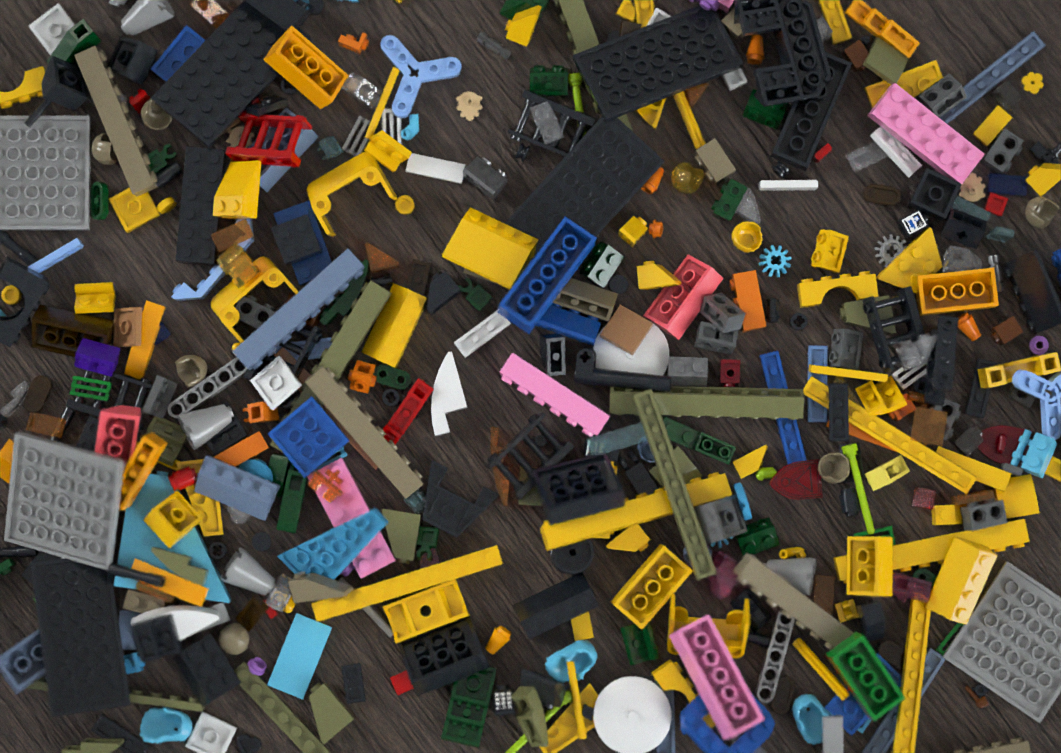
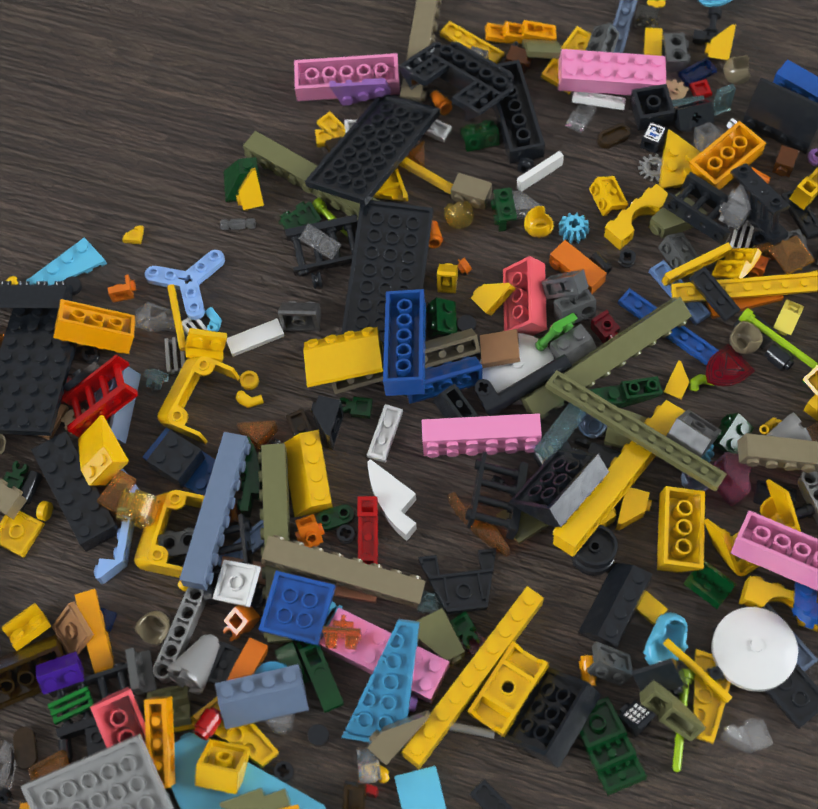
camera: 30 degrees left, 20 degrees down
(247, 573) = (325, 770): light grey cone -> none
(390, 224) = (248, 401): none -> yellow arm
(401, 682) = (534, 770): red tile -> none
(469, 105) = (249, 276): tan piece -> none
(516, 648) = (610, 664): none -> dark grey bracket
(680, 351) = (556, 330): none -> bright green plate
(742, 500) = (698, 407): dark azure tile -> none
(822, 153) = (547, 134): red tile -> none

